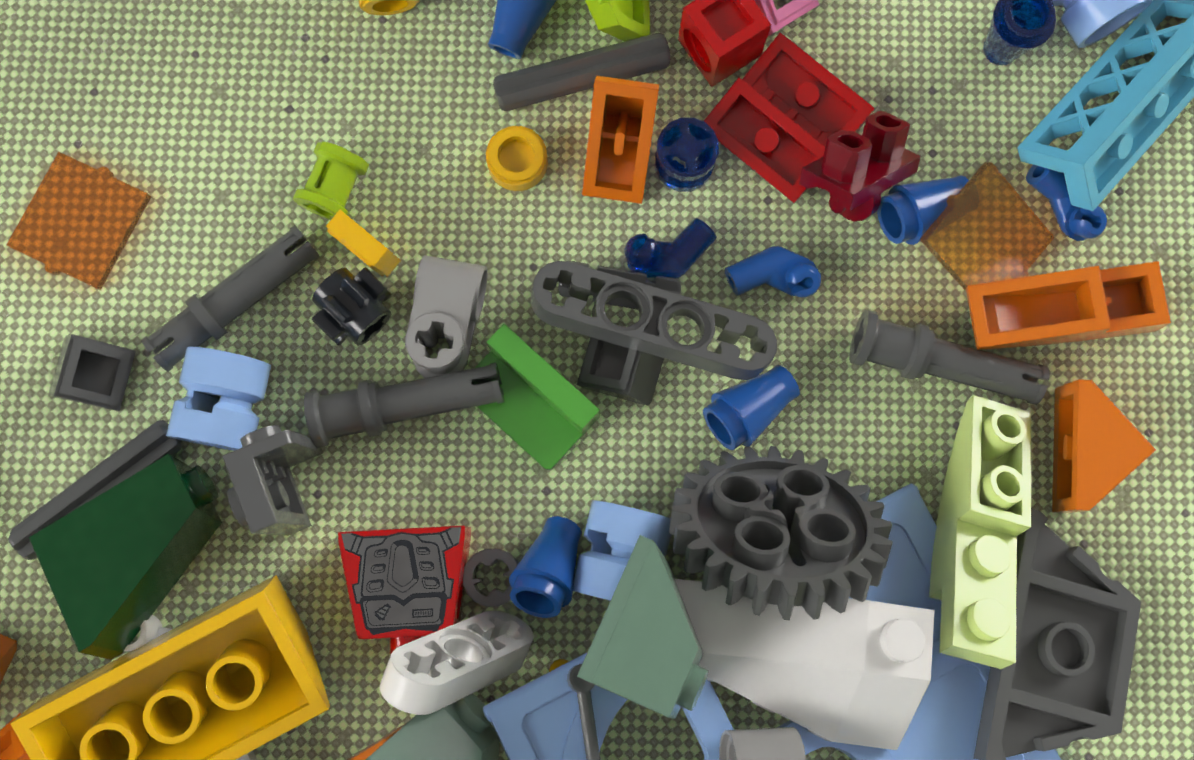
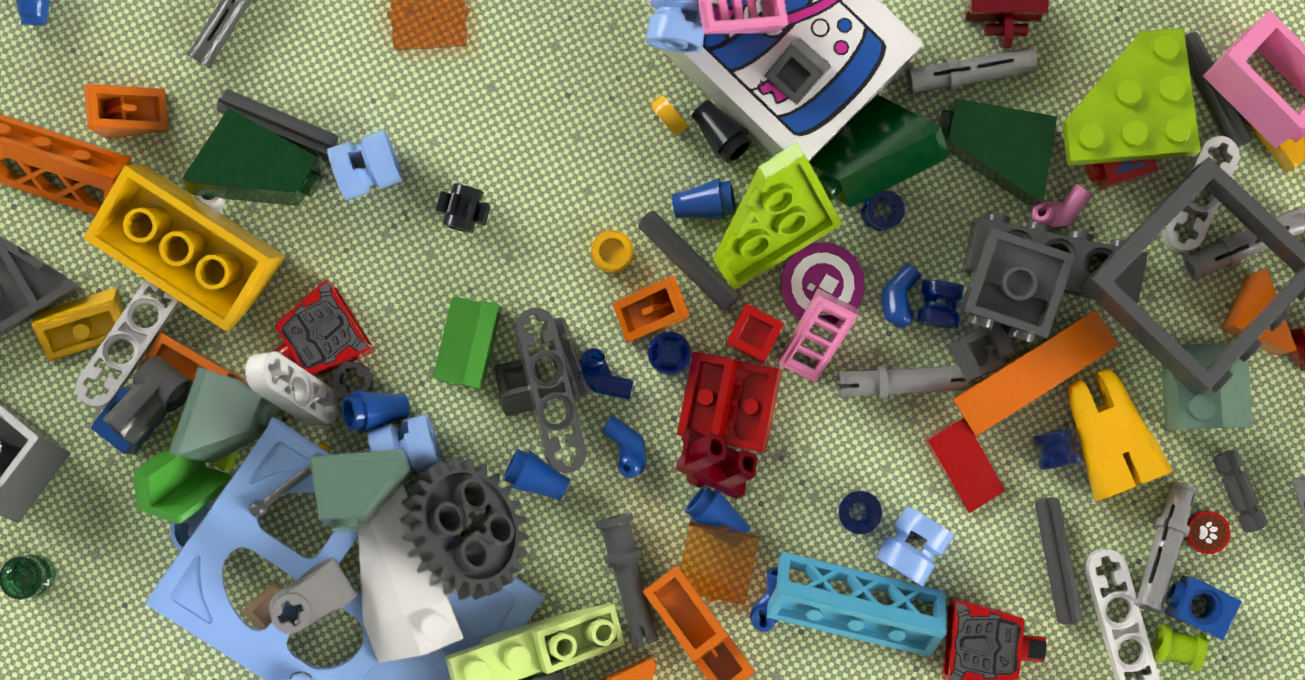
camera: 60 degrees right, 5 degrees up
(92, 372) = (342, 77): dark grey slope -> none
(229, 298) = (430, 133): dark grey pin -> none
(263, 483) = (330, 222): dark grey bracket -> none
(330, 180) = (532, 150): lime bush -> none
(362, 244) = (504, 192): yellow tile -> none
(374, 407) = (412, 255): dark grey pin -> none
(445, 306) = (498, 264): light grey piece -> none

